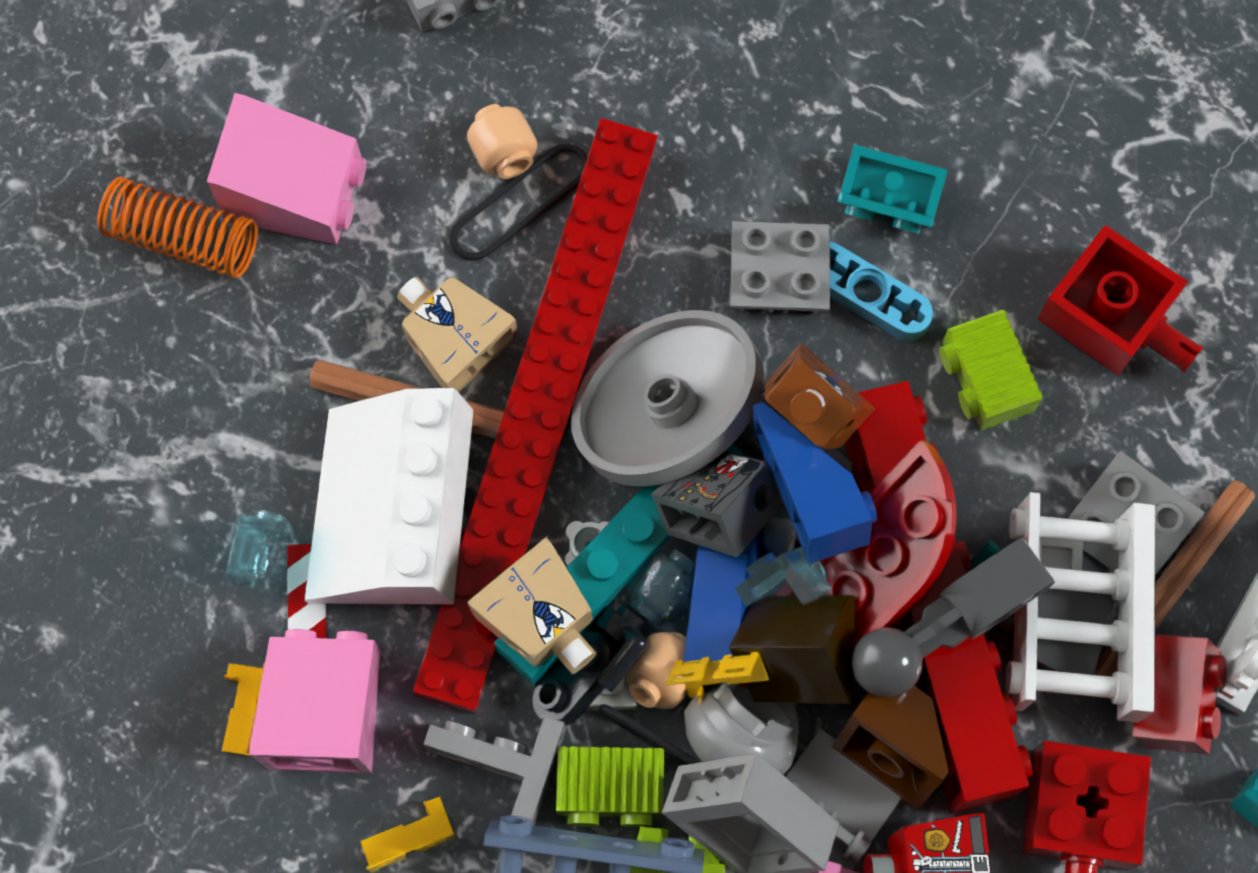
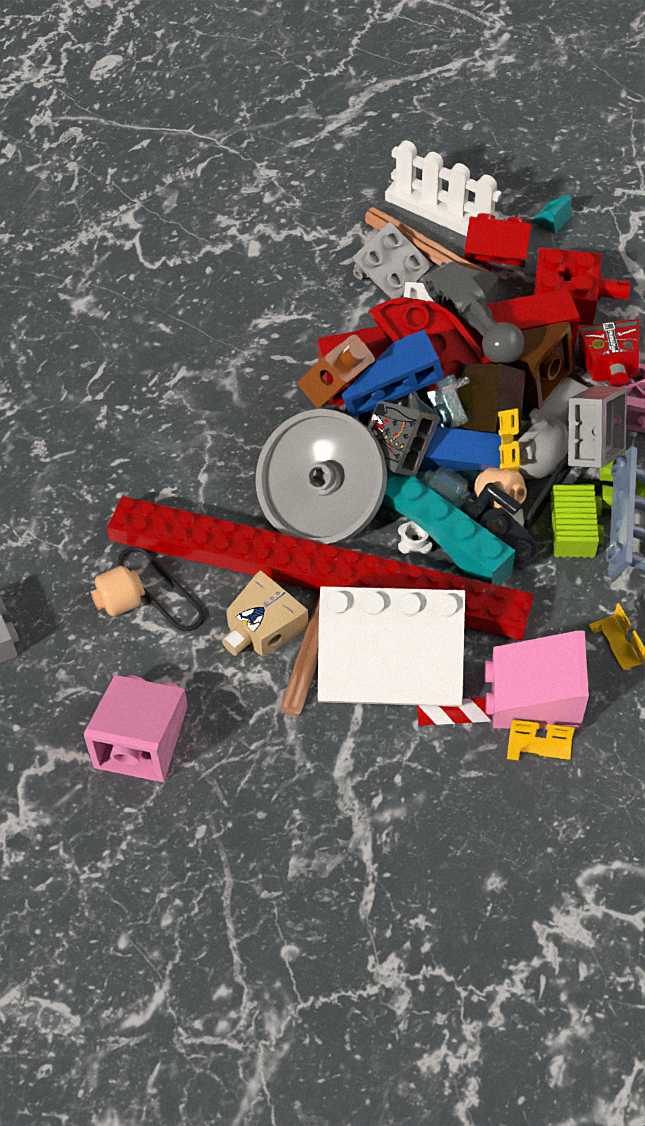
camera: 90 degrees left, 15 degrees down
(230, 255) = (186, 760): orange piece -> none
(248, 552) = (425, 740): clear light blue bracket -> none
(504, 758) = (567, 562): light grey bracket -> none
(537, 609) = (474, 533): tan torso -> none
(780, 266) = (223, 429): light grey hinge -> none
(871, 311) = (237, 401): medium azure beam -> none
(892, 188) = (168, 370): teal bracket -> none
(990, 370) = (295, 323): lime brick -> none
(1117, 330) = (255, 258): red brick -> none
(1129, 635) = (461, 247): white fence -> none

